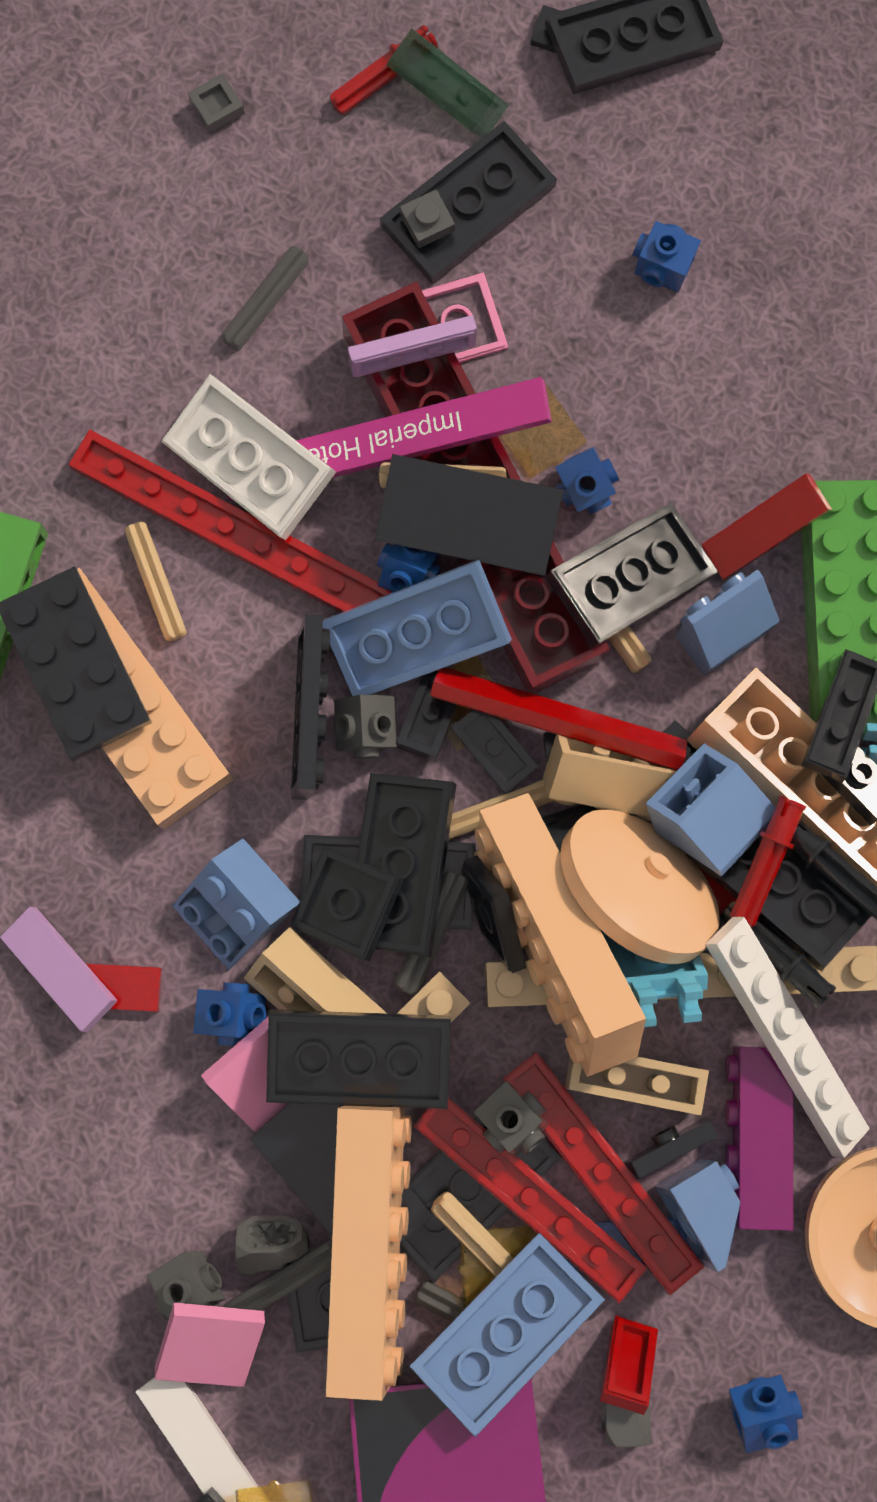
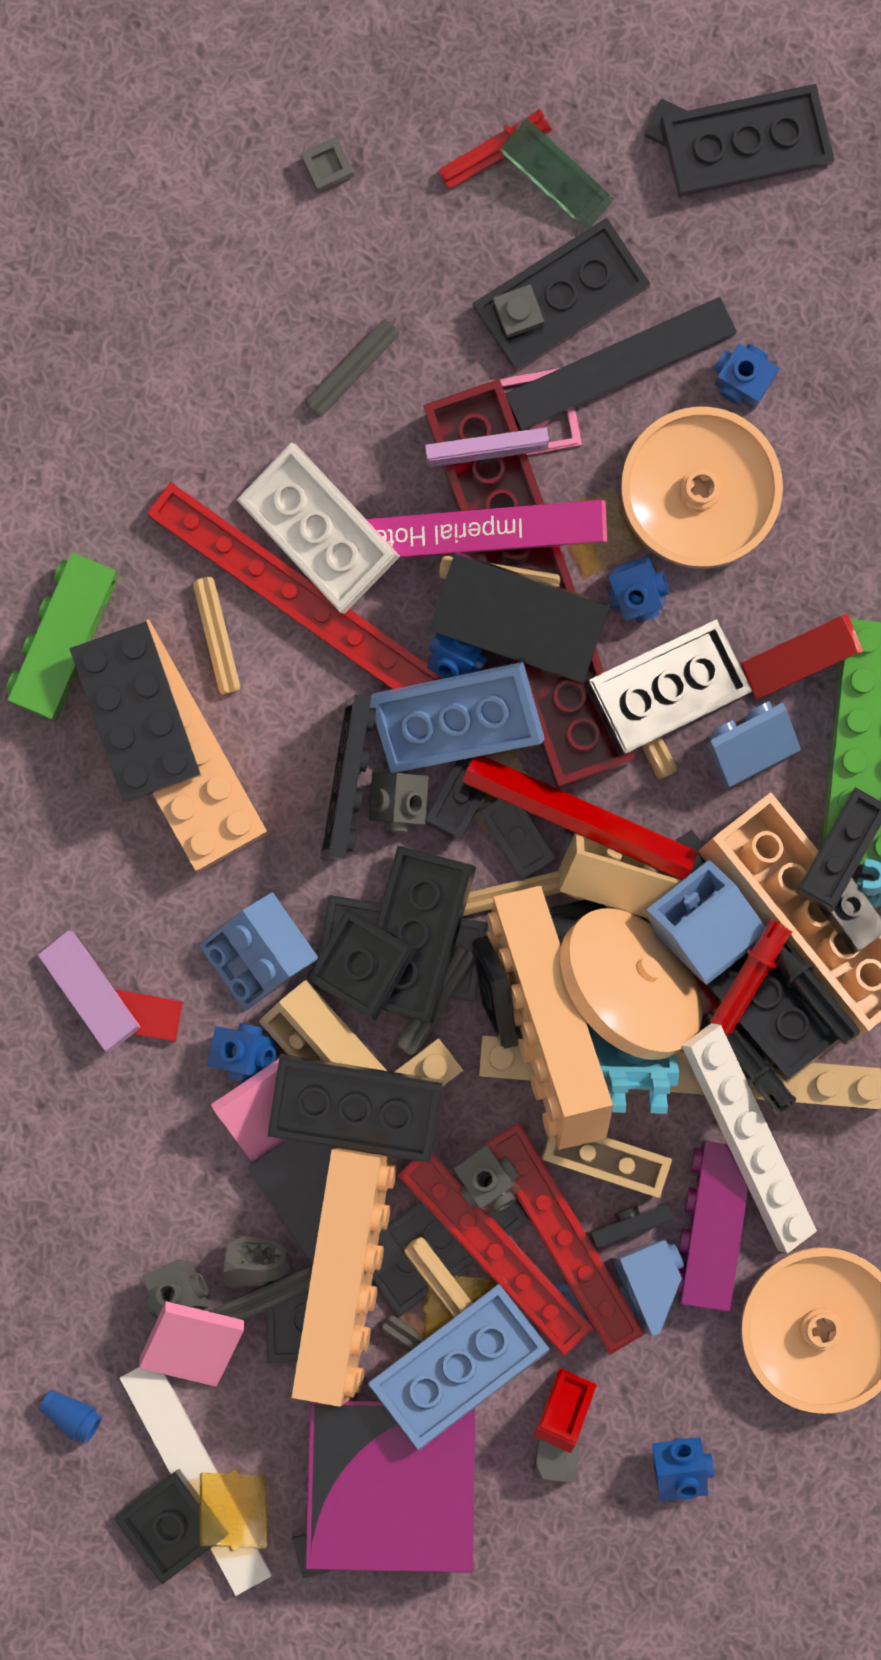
camera: 10 degrees right, 5 degrees up
(86, 1442) = (71, 1416): none -> blue cone
(541, 258) = (620, 364): none -> black tile
(637, 370) = (701, 487): none -> light nougat dish

